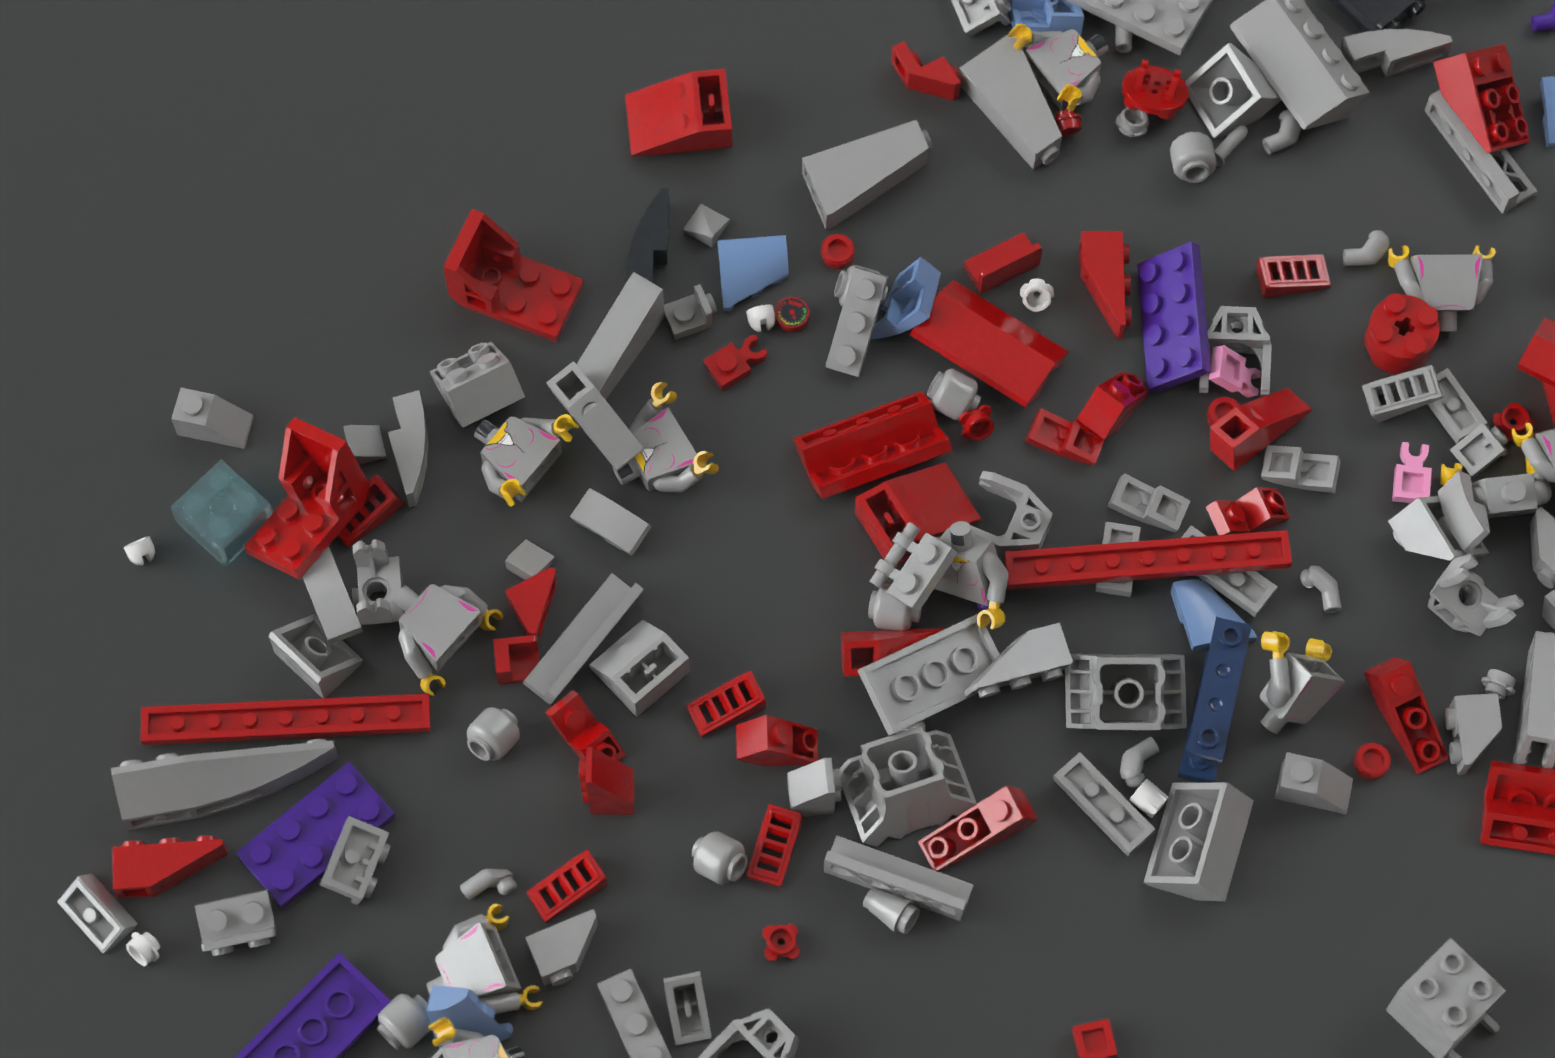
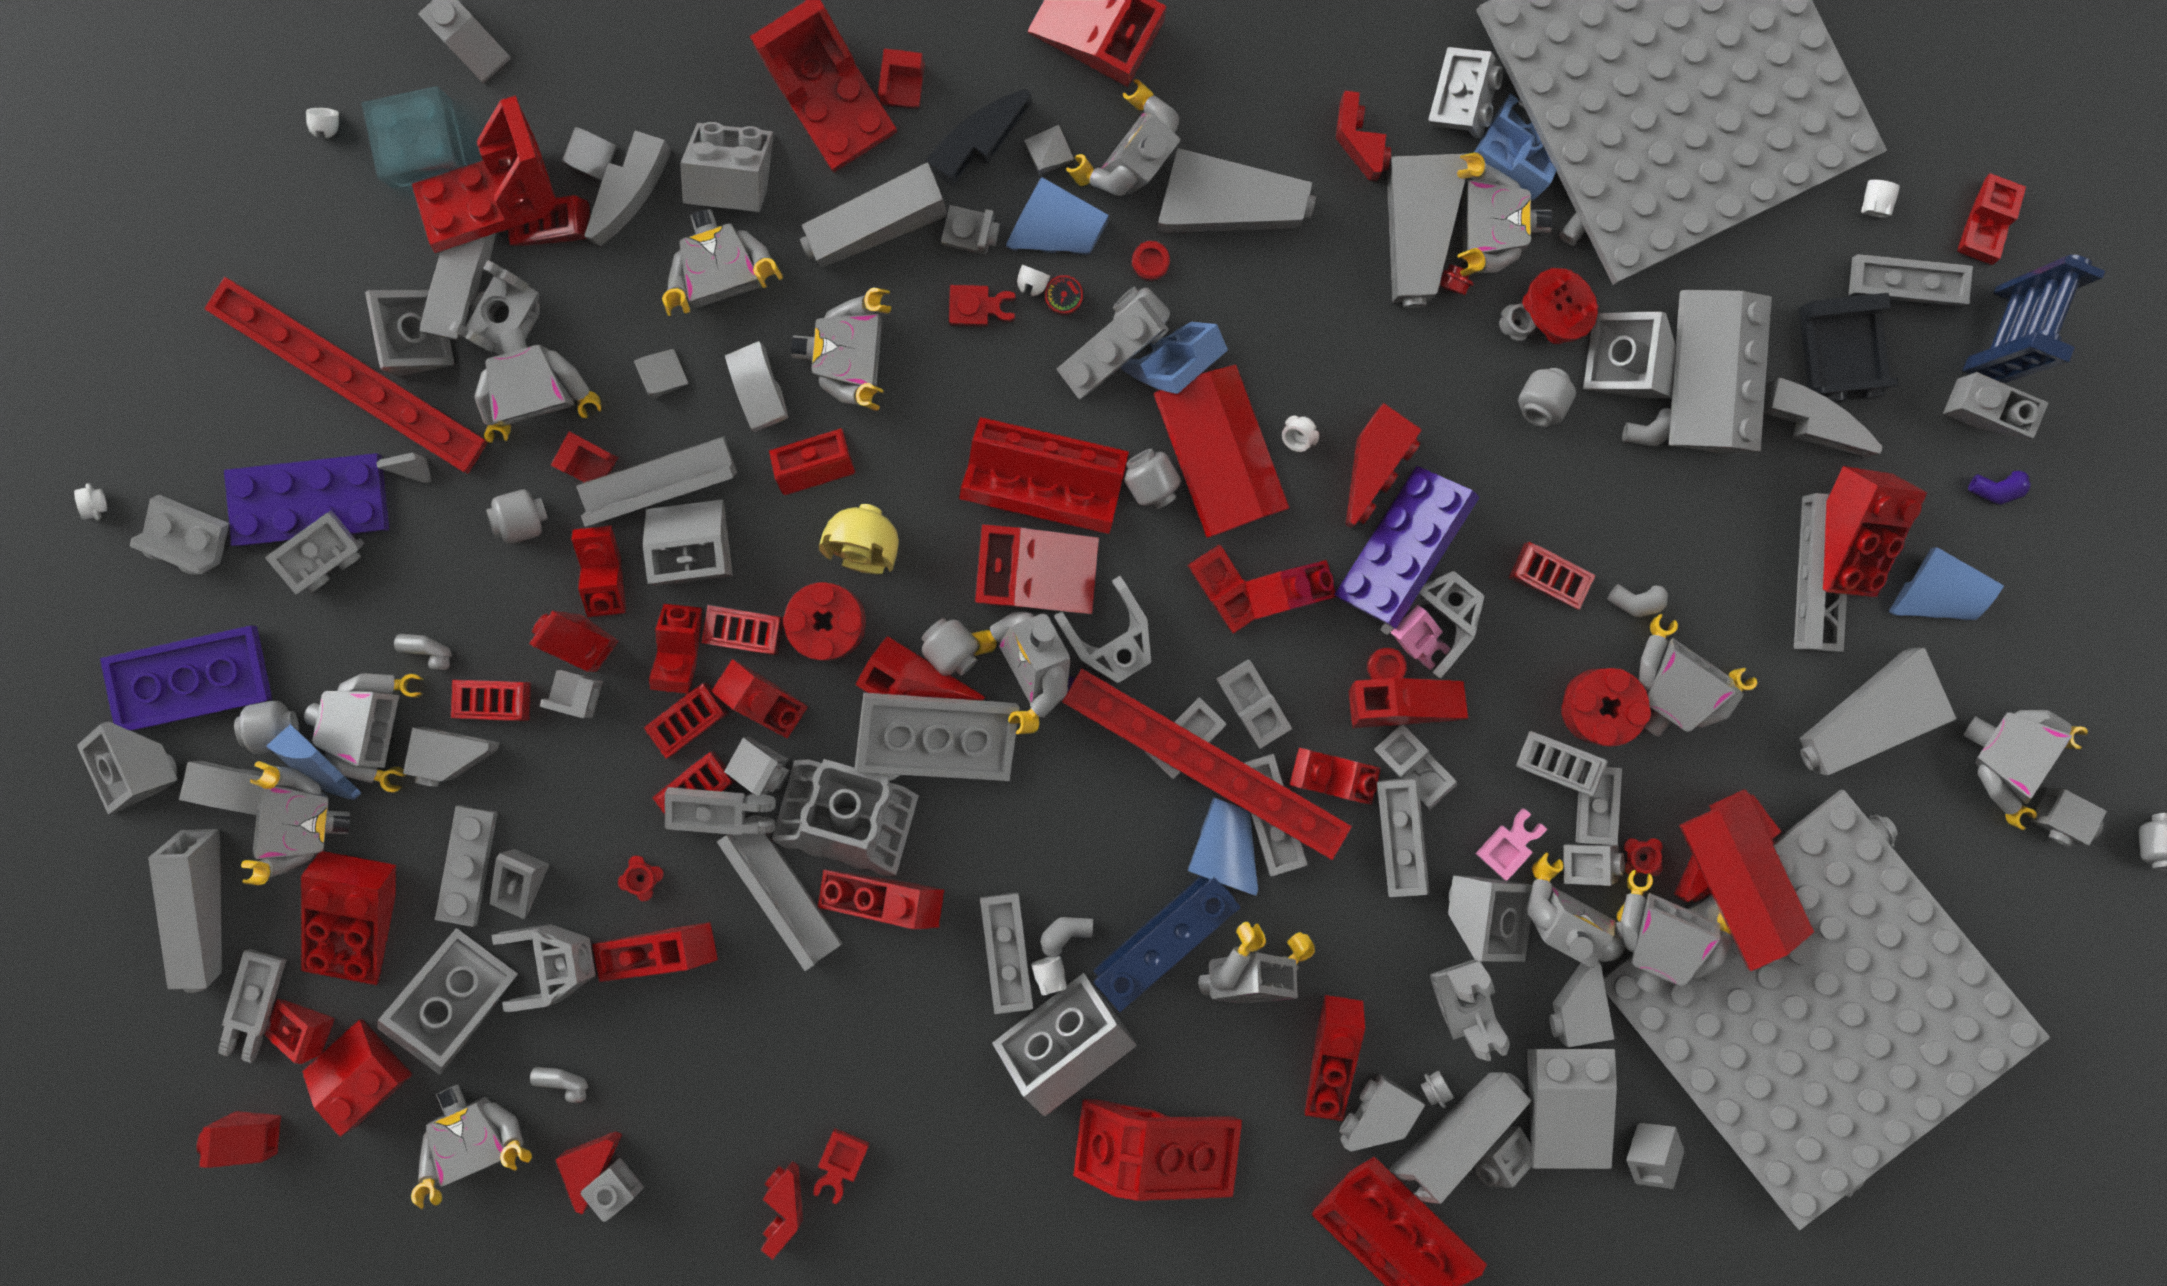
camera: 40 degrees right, 20 degrees up
(96, 912) = (76, 439): light grey slope -> none
(154, 868) = (135, 433): red slope -> none
(209, 783) = (207, 381): light grey wedge -> none
(380, 755) = (407, 465): none -> light grey slope
(532, 601) = (632, 417): red slope -> none
(562, 243) = (901, 78): none -> red panel
(595, 416) = (798, 279): light grey slope -> none
(630, 838) = (573, 694): none -> light grey panel
(685, 750) = (676, 648): none -> red slope
(690, 551) = (811, 462): none -> red slope
(719, 858) = (635, 768): light grey head -> none
(741, 770) = (711, 702): none -> red slope
(772, 576) = (862, 539): none -> light yellow cylinder
(776, 180) = (1139, 152): none -> light grey torso
(782, 633) = (802, 621): none -> red brick
(805, 843) = (717, 812): none -> light grey hinge
(833, 987) = (655, 952): none -> red slope
(892, 910) = (752, 920): light grey cone -> none
(921, 571) = (984, 642): light grey plate -> none
(977, 423) = (1153, 521): red plate -> none
(1003, 262) = (1294, 377): red panel -> none
(1030, 656) = (1028, 777): light grey slope -> none
(1126, 692) = (1100, 866): light grey slope -> none
(1229, 144) = (1593, 405): light grey piece -> none
(1313, 784) = (1202, 1064): light grey slope -> none
(1324, 582) = (1354, 889): light grey arm -> none
(1325, 868) = (1156, 1156): none -> red bracket
(1331, 521) = (1403, 837): none -> light grey plate
(1372, 761) = (1273, 1076): red tile -> none
(1463, 515) = (1520, 929): light grey slope -> none

